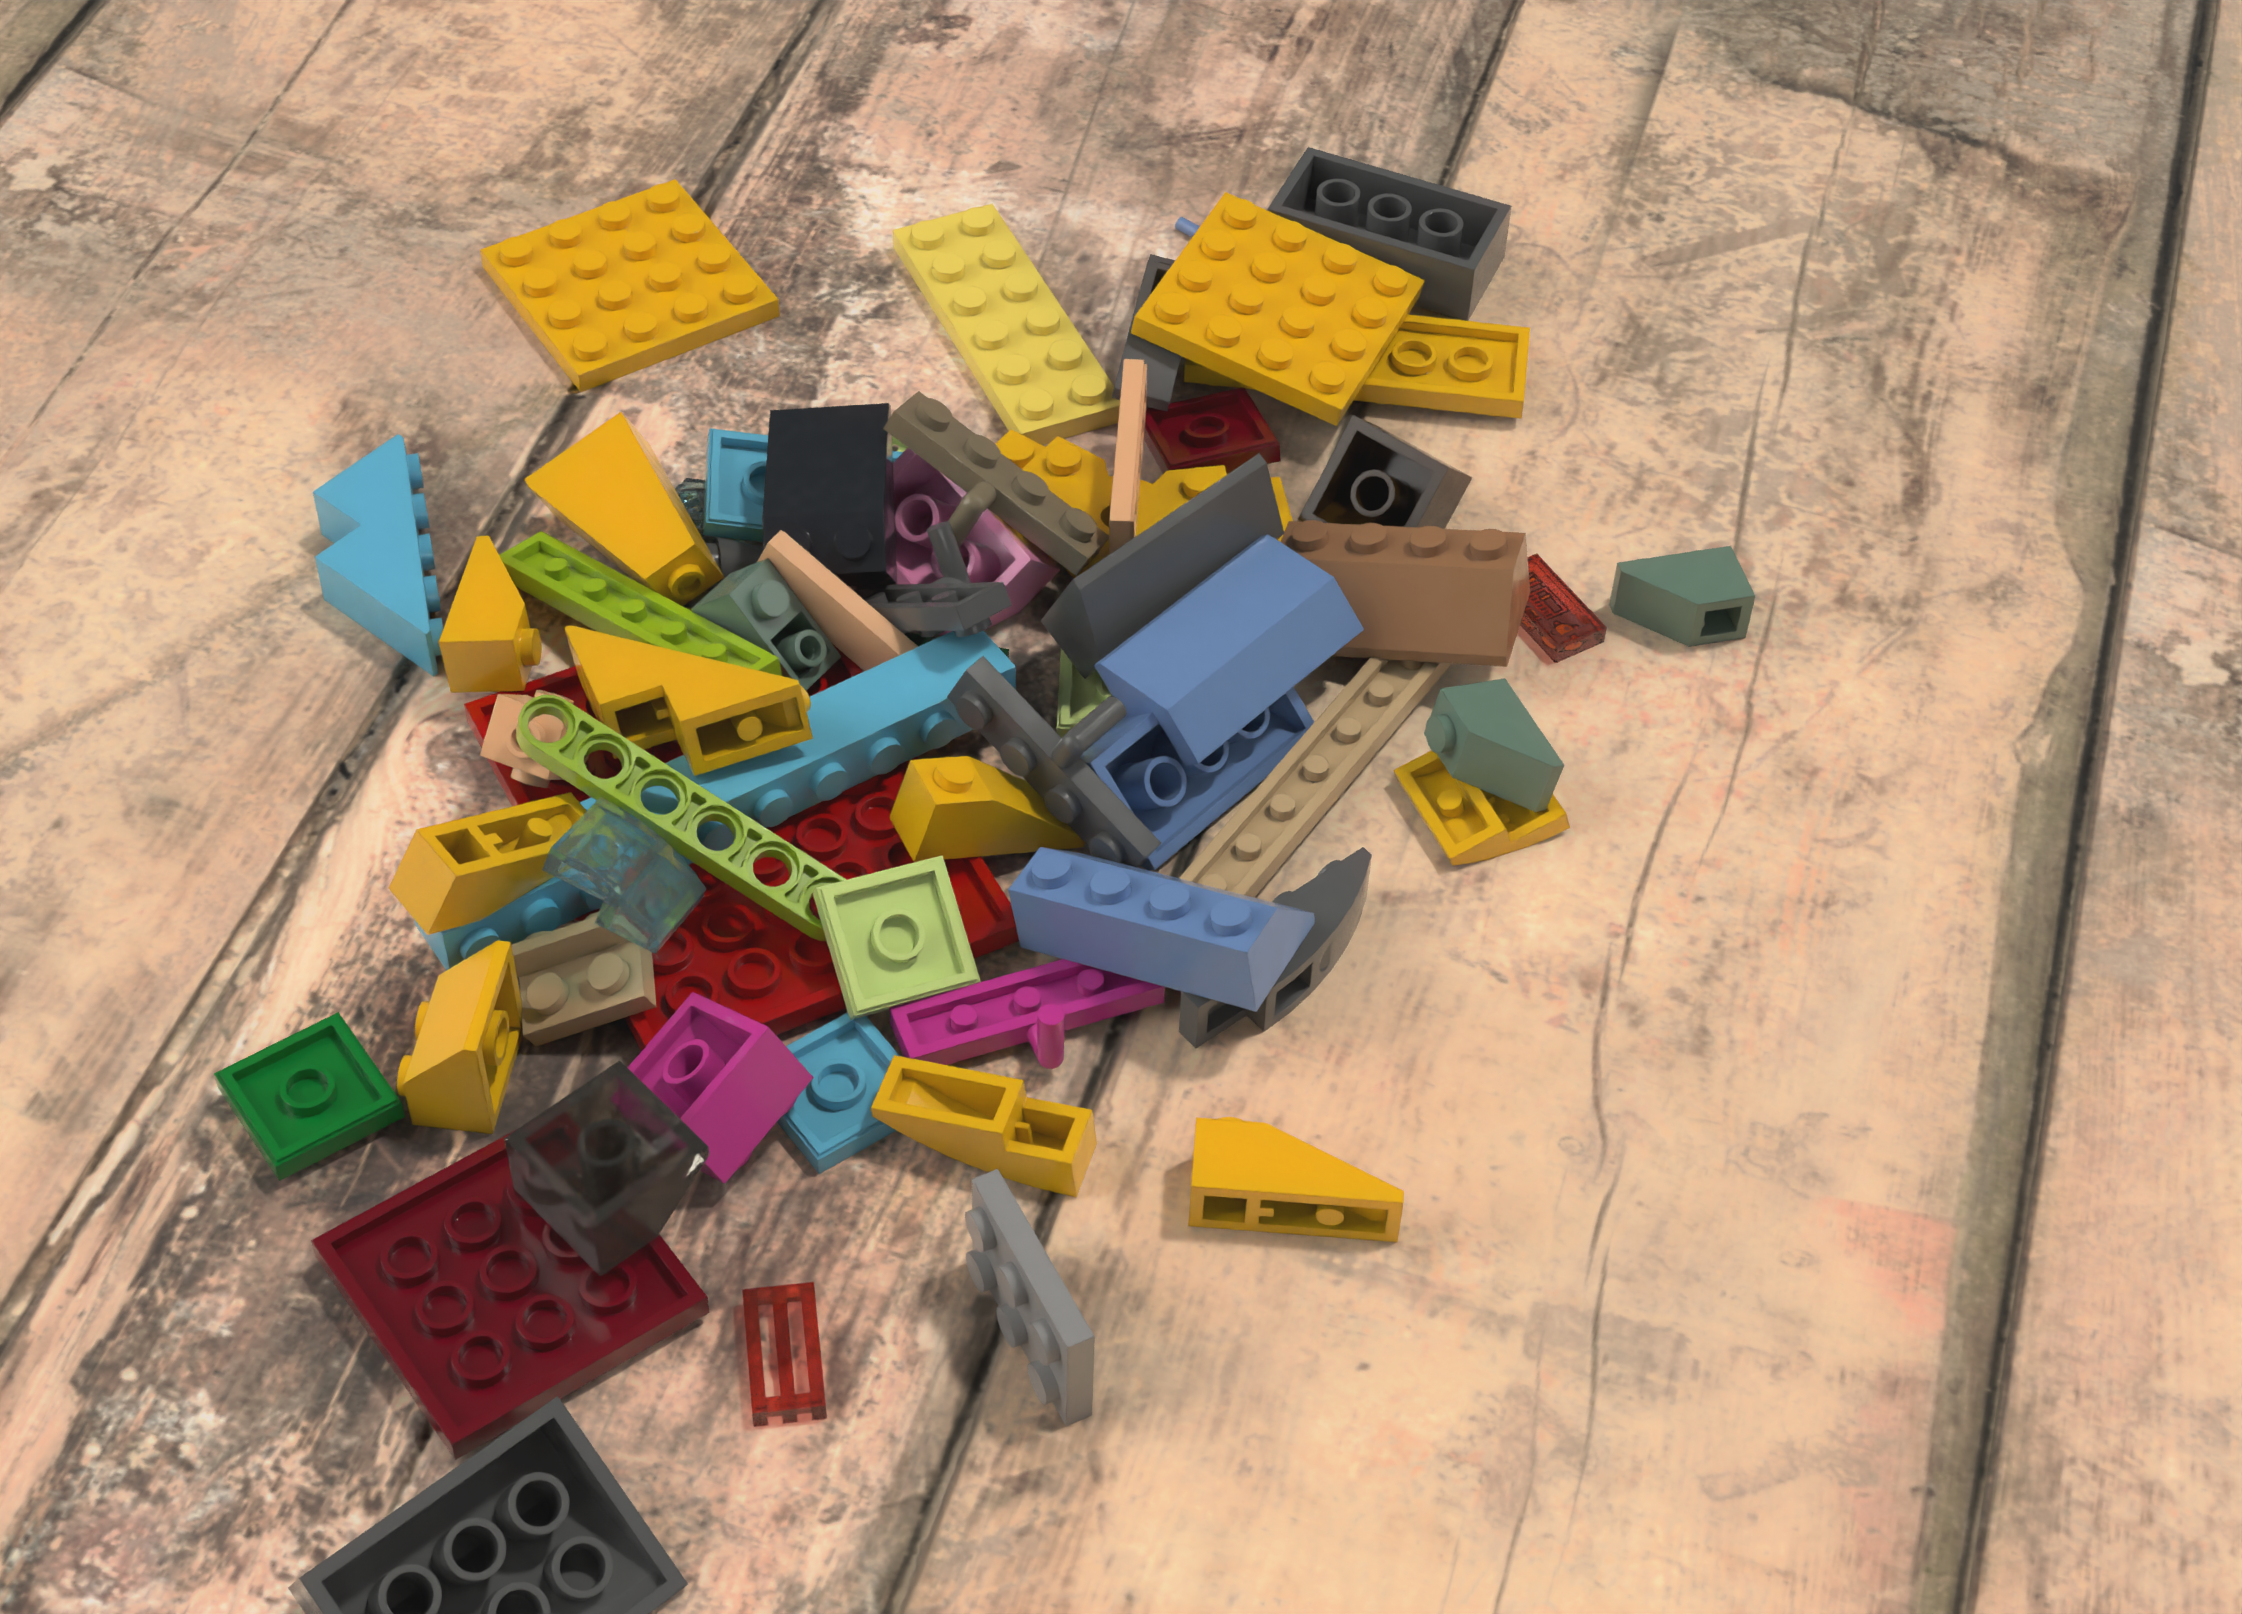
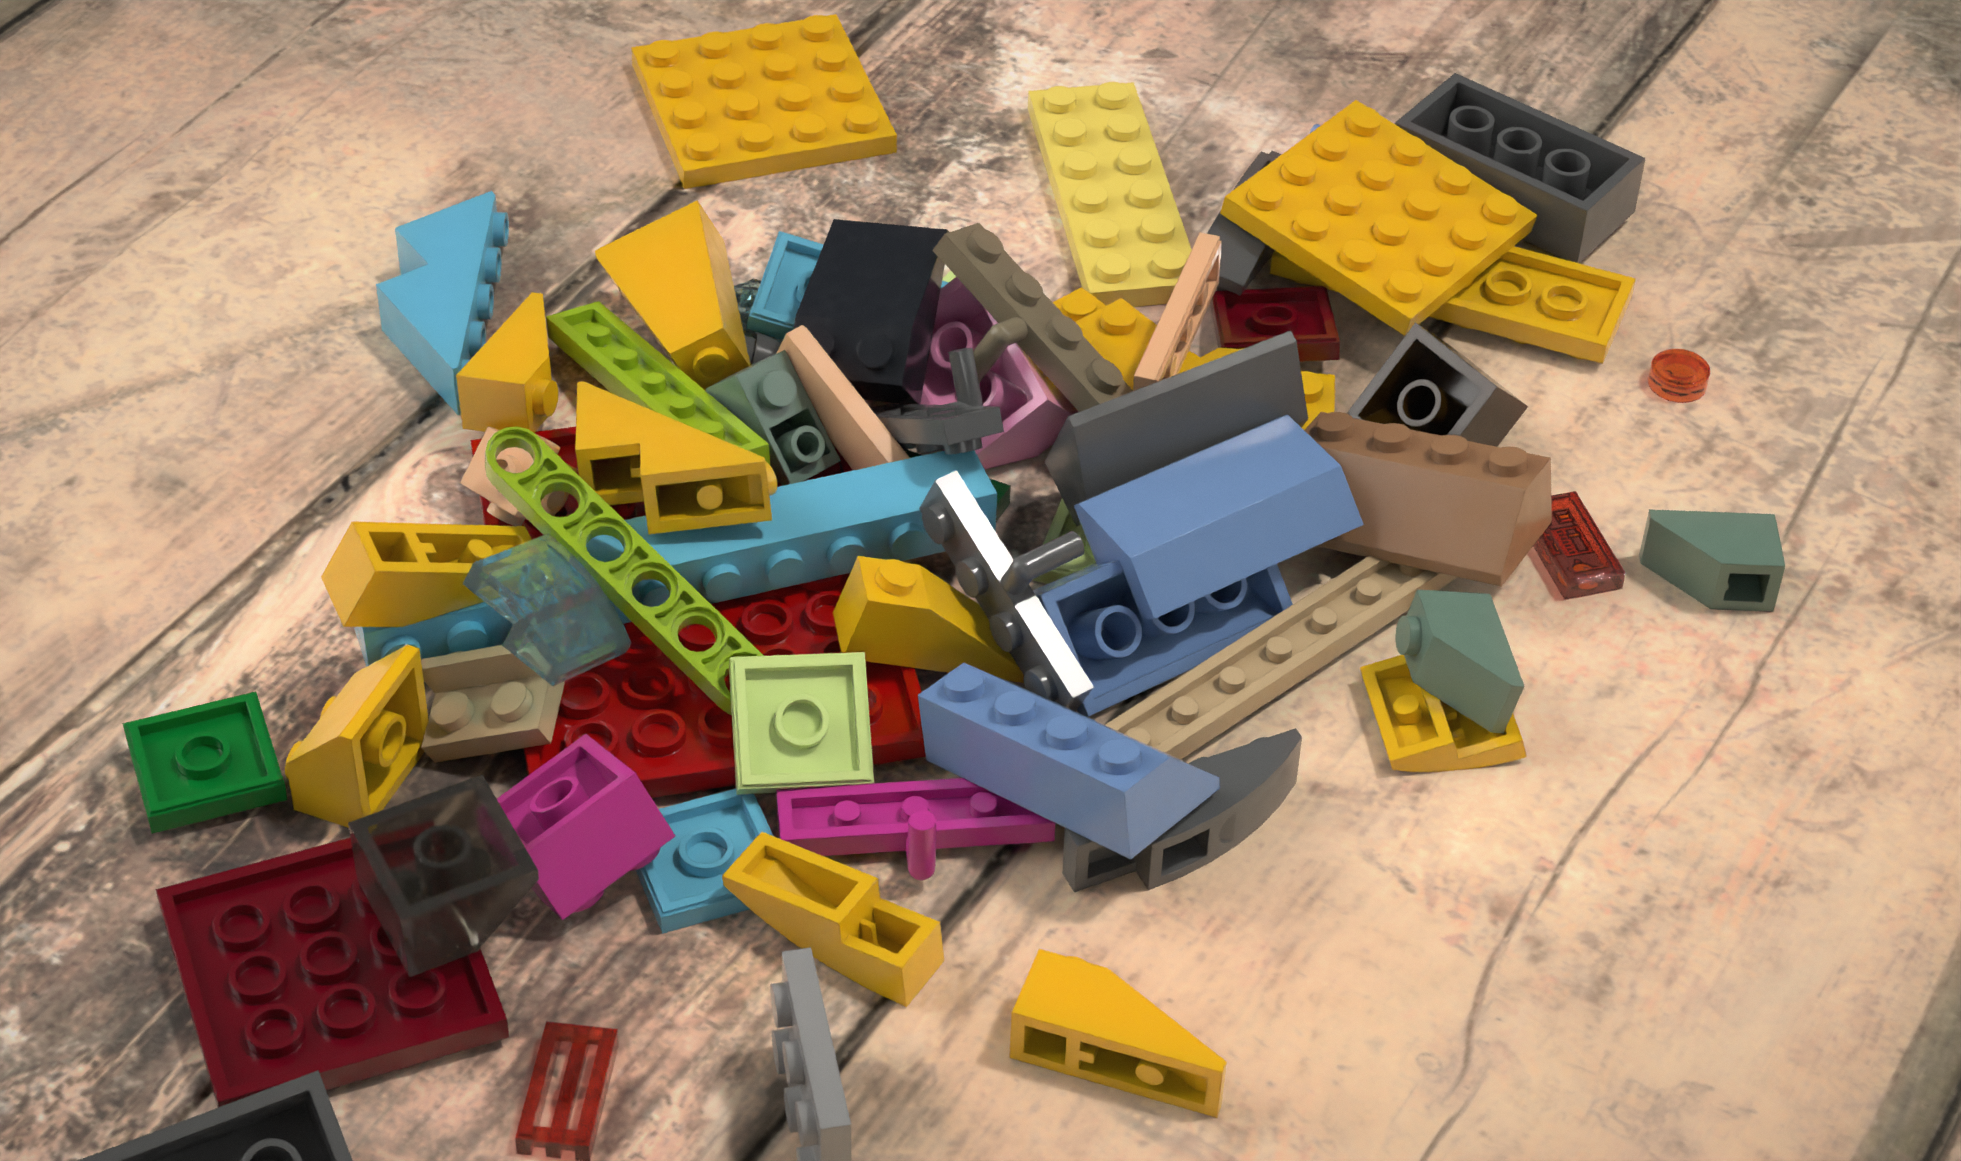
camera: 15 degrees right, 5 degrees down
(1593, 417) = (1679, 375): none -> clear red tile

